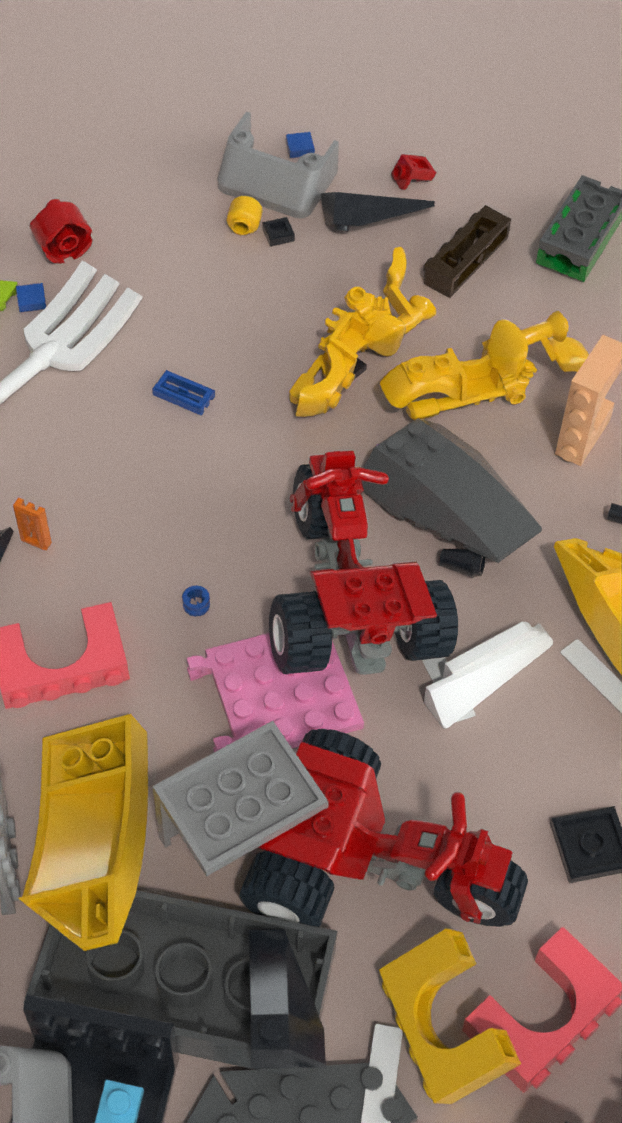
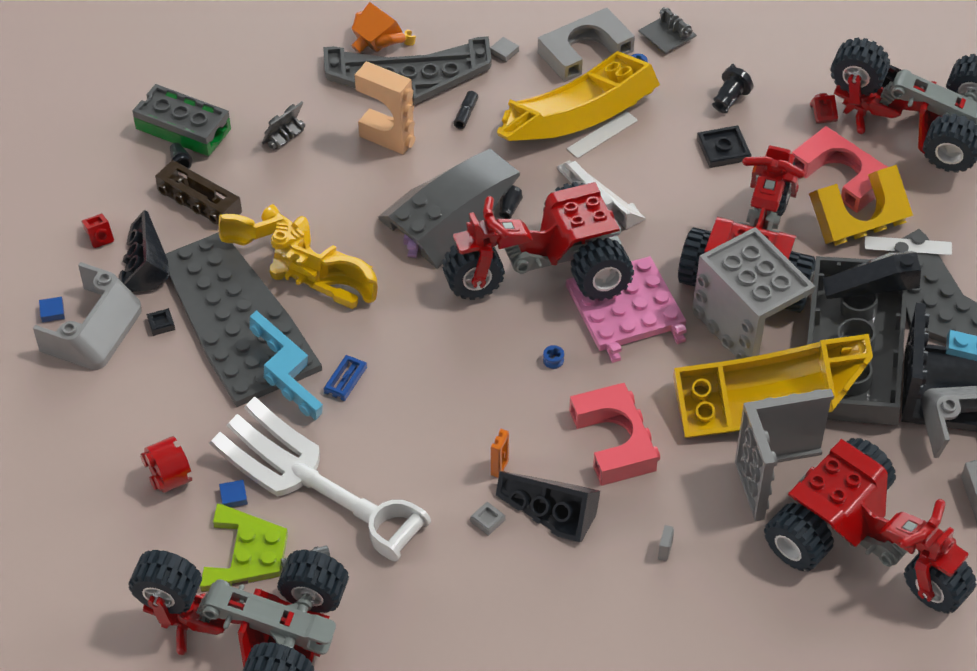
camera: 90 degrees left, 5 degrees down
(185, 323) = (285, 366): none -> medium azure bracket
(244, 215) = (144, 342): yellow head -> none
(273, 296) = (219, 298): none -> dark grey wing
(498, 373) = (336, 176): yellow piece -> none
(526, 234) = (180, 155): none -> black cone
(583, 324) = (284, 128): none -> dark grey hinge

